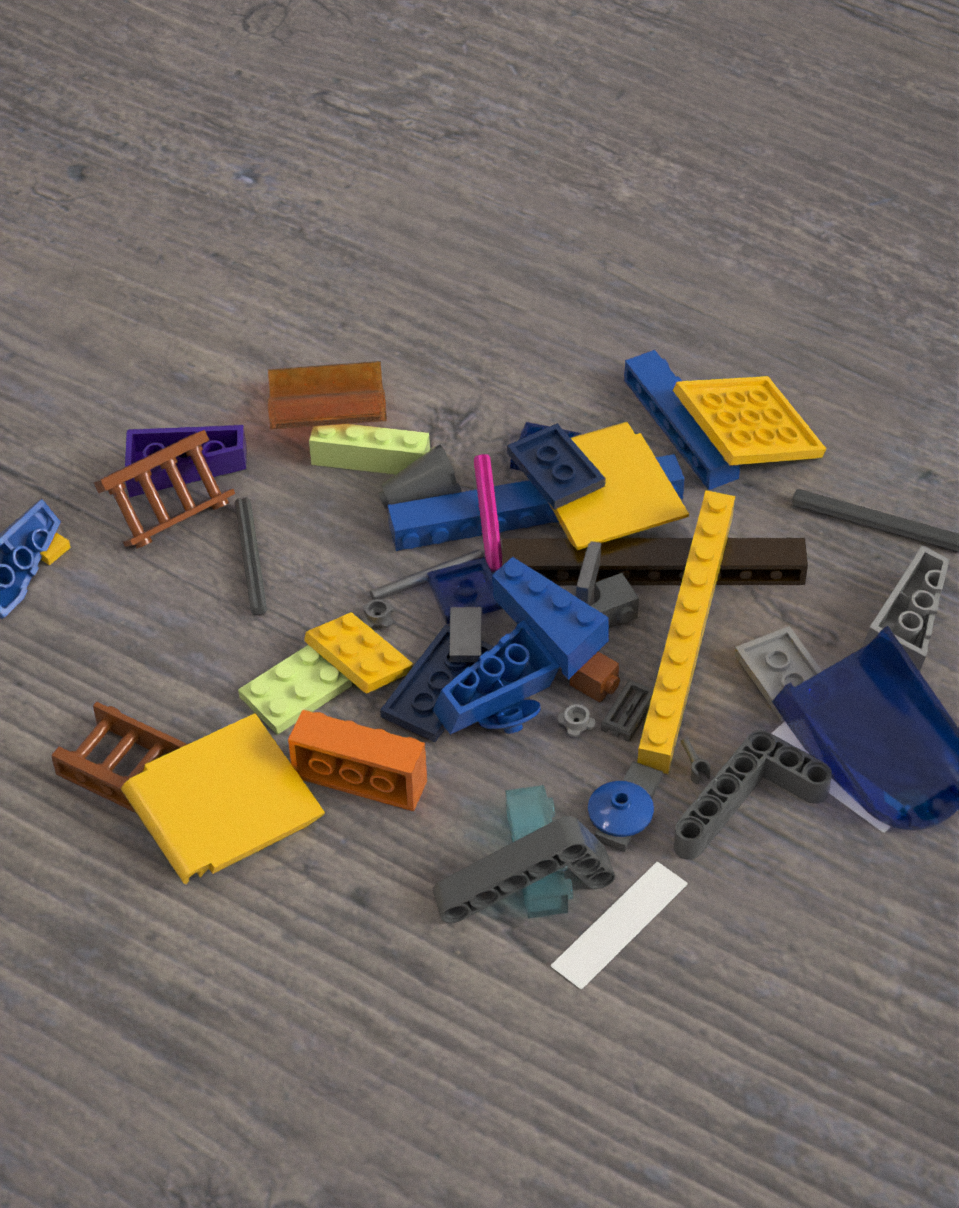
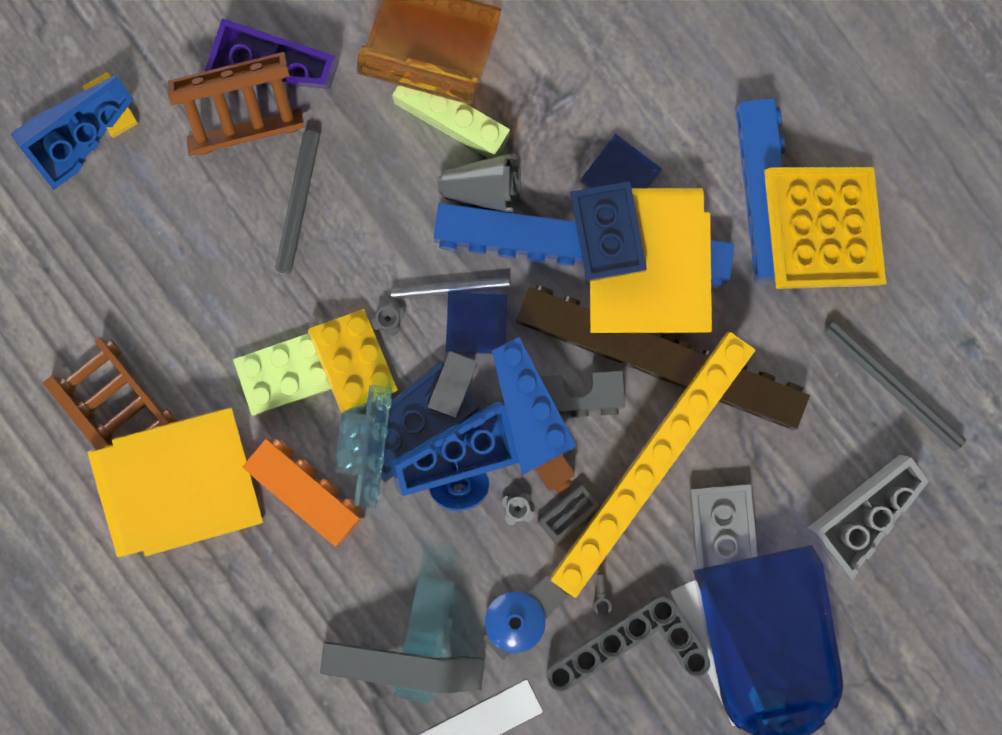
camera: 20 degrees right, 35 degrees up
(398, 703) = (363, 444): none -> clear light blue bracket
(488, 511) = (526, 253): dark pink axle -> none
(589, 572) = (586, 371): flat silver tile -> none

